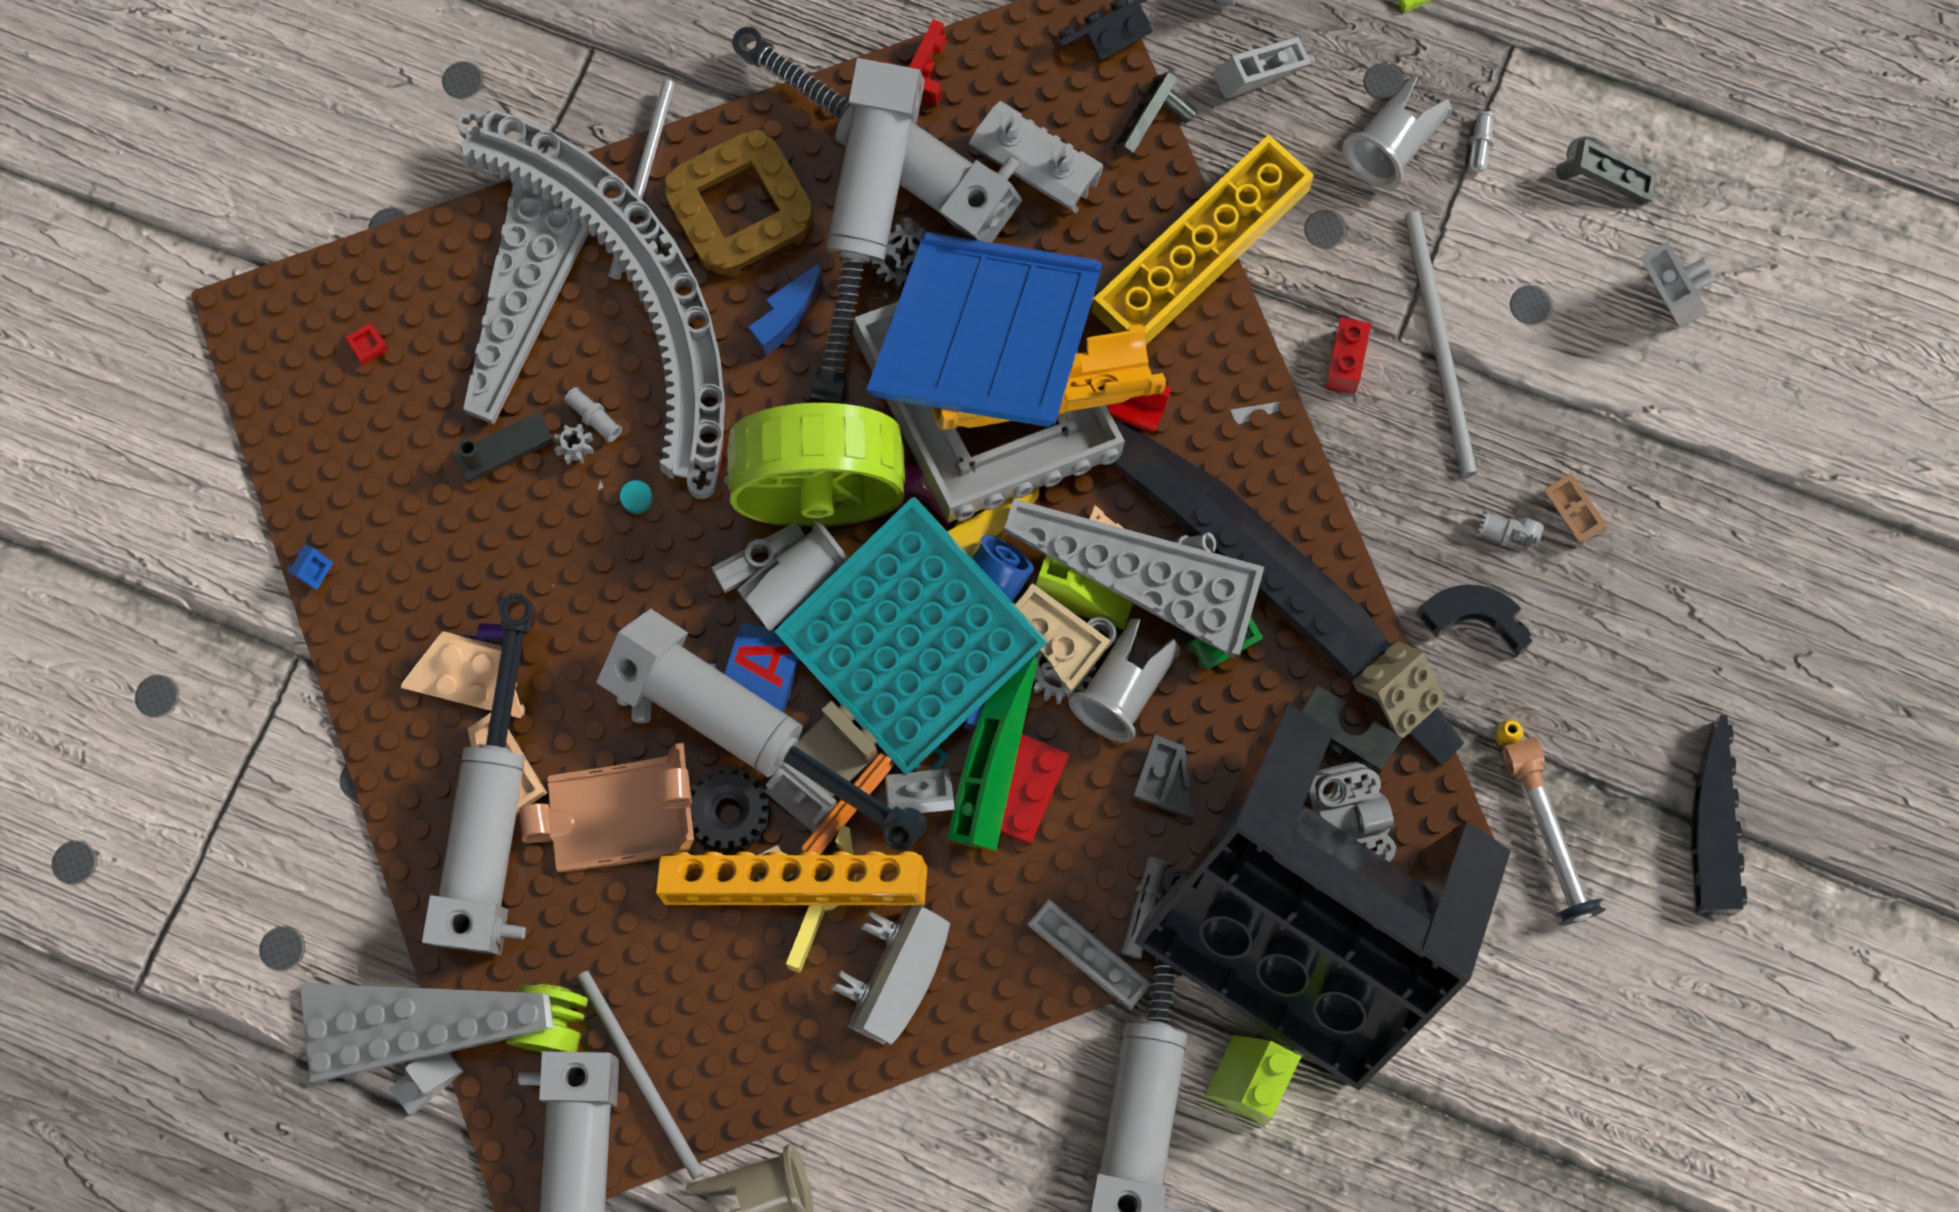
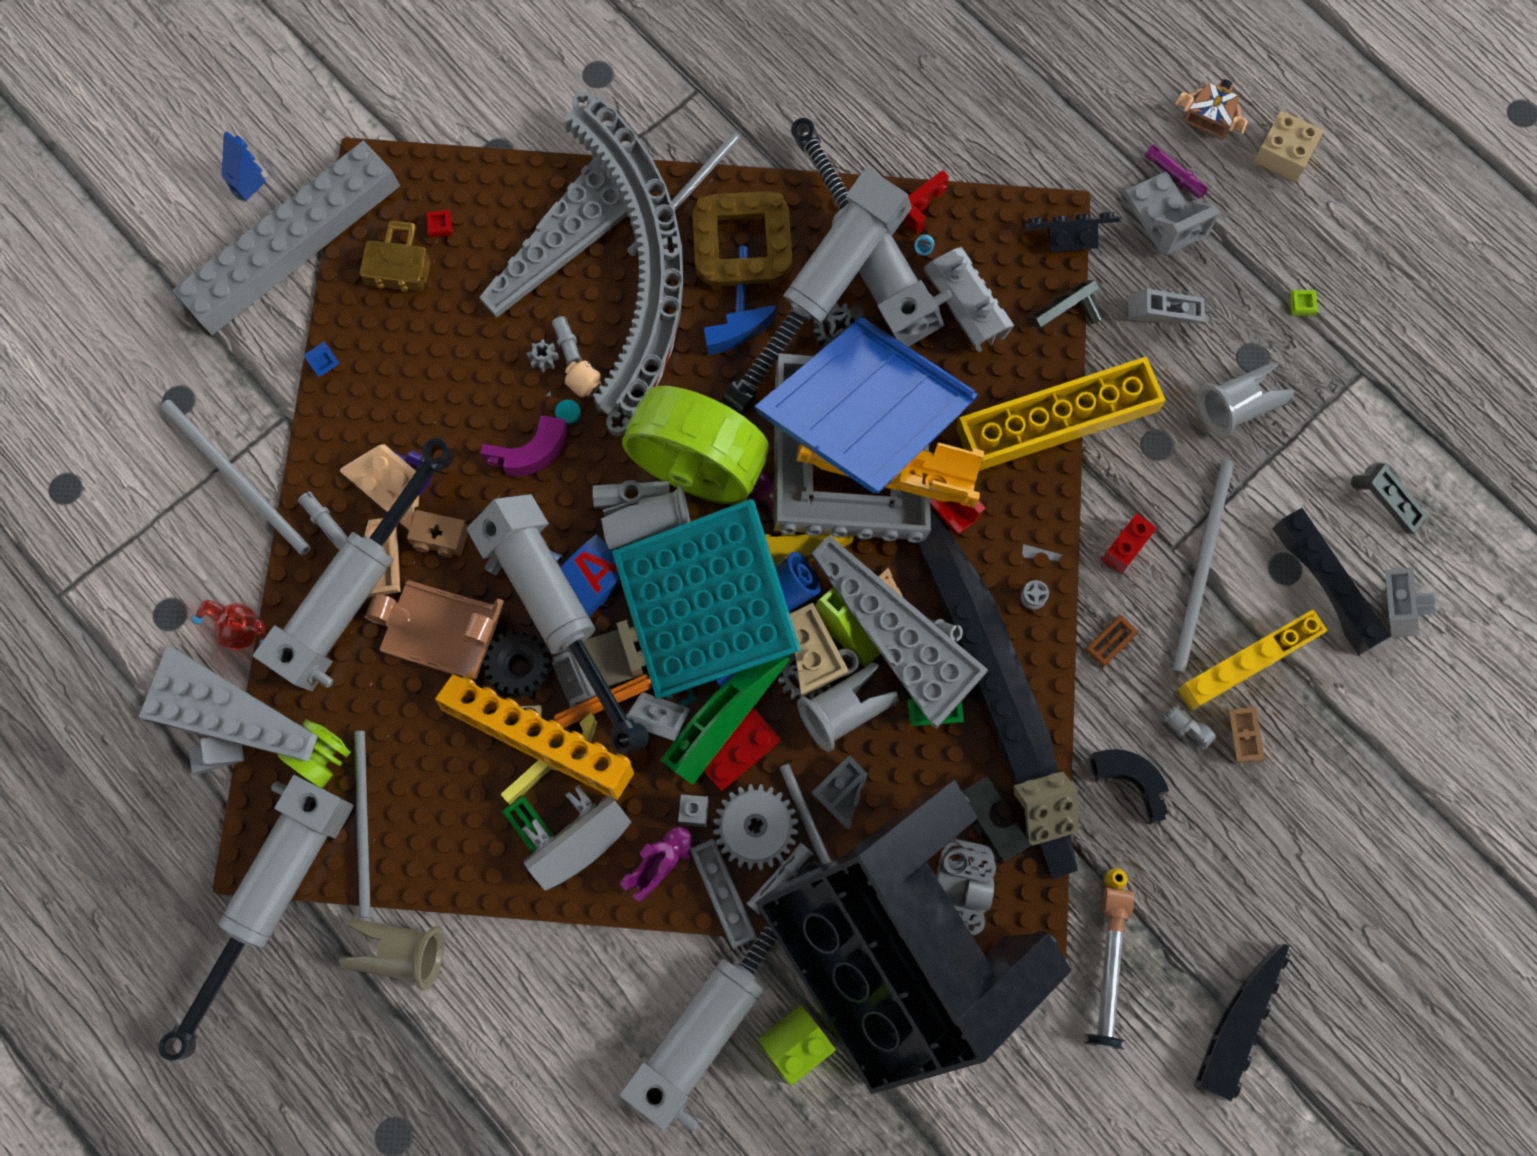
camera: 25 degrees right, 0 degrees up
(90, 384) = (239, 168): none -> blue slope
(192, 442) = (287, 237): none -> light grey brick
(277, 752) = (236, 477): none -> light grey piece
(340, 415) = (396, 264): none -> pearl gold piece
(368, 922) = (234, 623): none -> clear red piece
(407, 750) = (321, 516): none -> light grey pin
(502, 447) = (493, 336): pearl dark grey piece -> none
(541, 700) = (427, 525): none -> medium nougat brick
(621, 567) = (534, 455): none -> magenta arch
(635, 449) = (582, 378): none -> light nougat head
(765, 262) = (741, 289): none -> blue bar
(818, 992) = (515, 806): none -> green tile
(953, 120) = (924, 249): none -> medium azure hinge
(1003, 951) = (658, 862): none -> magenta animal
(1012, 878) = (693, 811): none -> light grey brick
(1090, 887) = (773, 835): none -> light grey gear
(1136, 824) = (805, 814): none -> light grey bar
(1274, 454) = (1038, 591): none -> light grey wheel
(1372, 497) = (1096, 656): none -> dark orange tile
(1481, 141) = (1304, 432): light grey axle -> none
(1542, 424) = (1251, 660): none -> yellow slope
(1629, 320) = (1356, 616): none -> black arch

